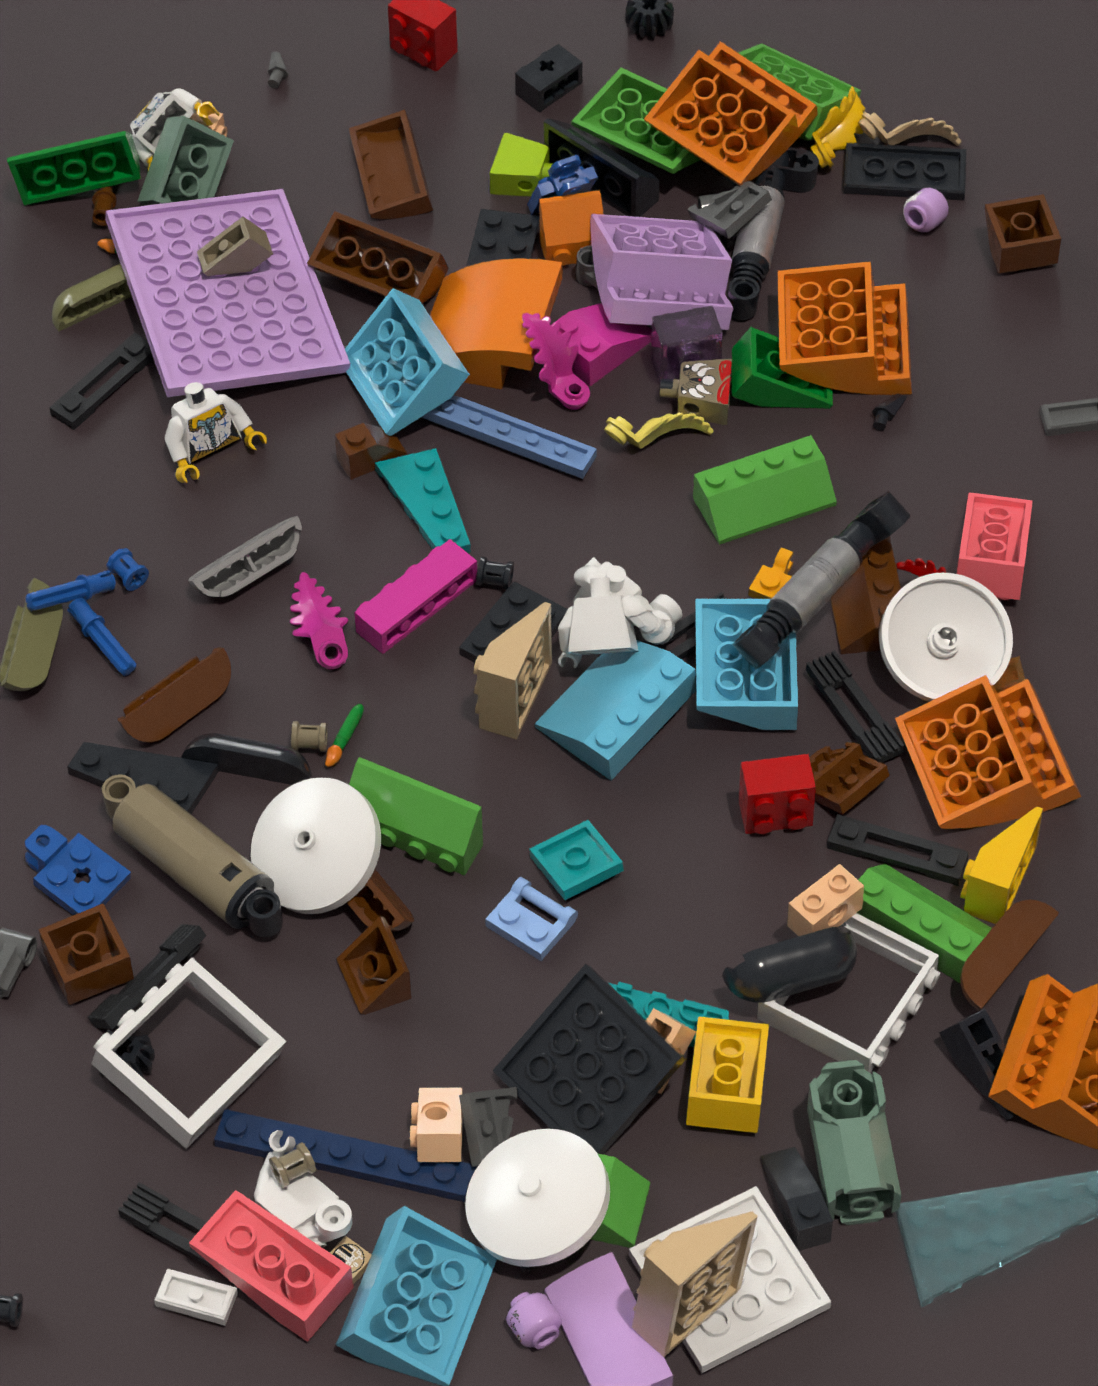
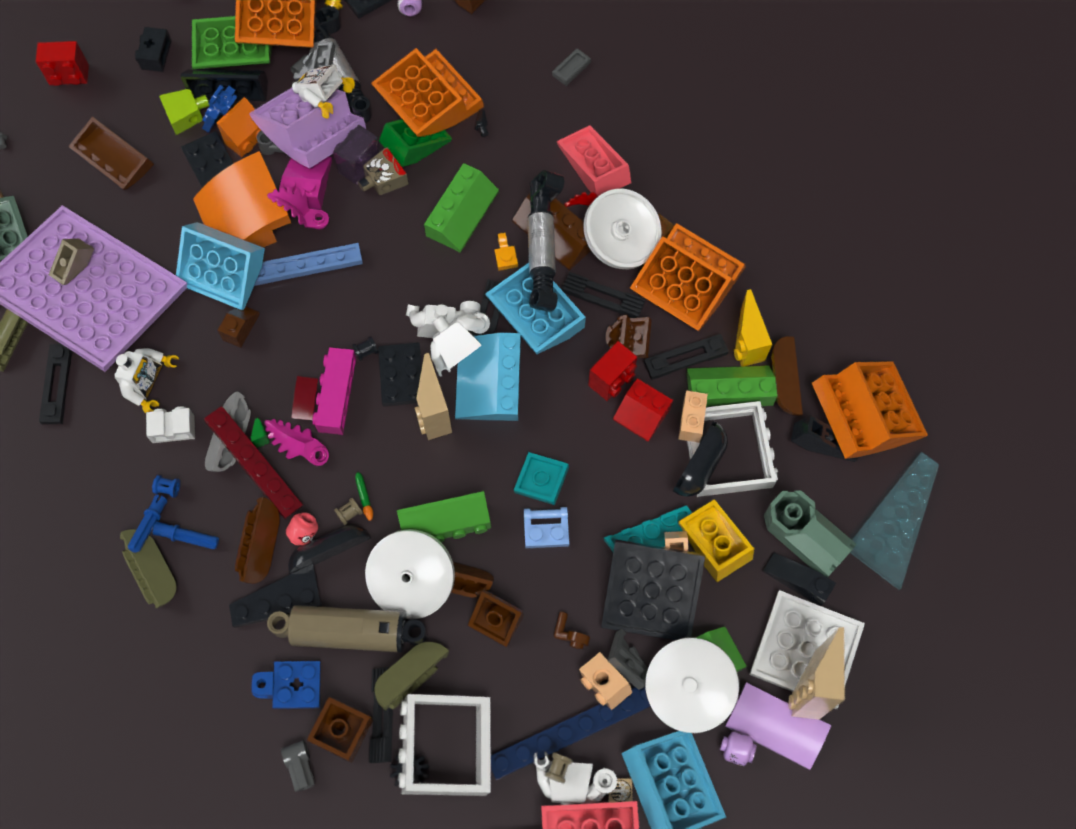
camera: 40 degrees left, 15 degrees up
(190, 508) = (170, 426): none -> white brick
(222, 950) = (408, 674): none -> olive brick
(238, 715) = (302, 528): none -> coral head
(246, 606) = (253, 462): none -> dark red plate
(280, 584) = (259, 435): none -> green slope
(371, 578) = (304, 398): none -> dark red slope
(377, 259) = (152, 214): reddish brown slope -> none
(426, 496) = (286, 327): teal wing -> none
(449, 1060) = (576, 639): none -> reddish brown plate
(620, 429) = (376, 210): light yellow plant -> none
(706, 229) = (319, 85): none -> white torso
(776, 867) = (643, 410): none -> red slope

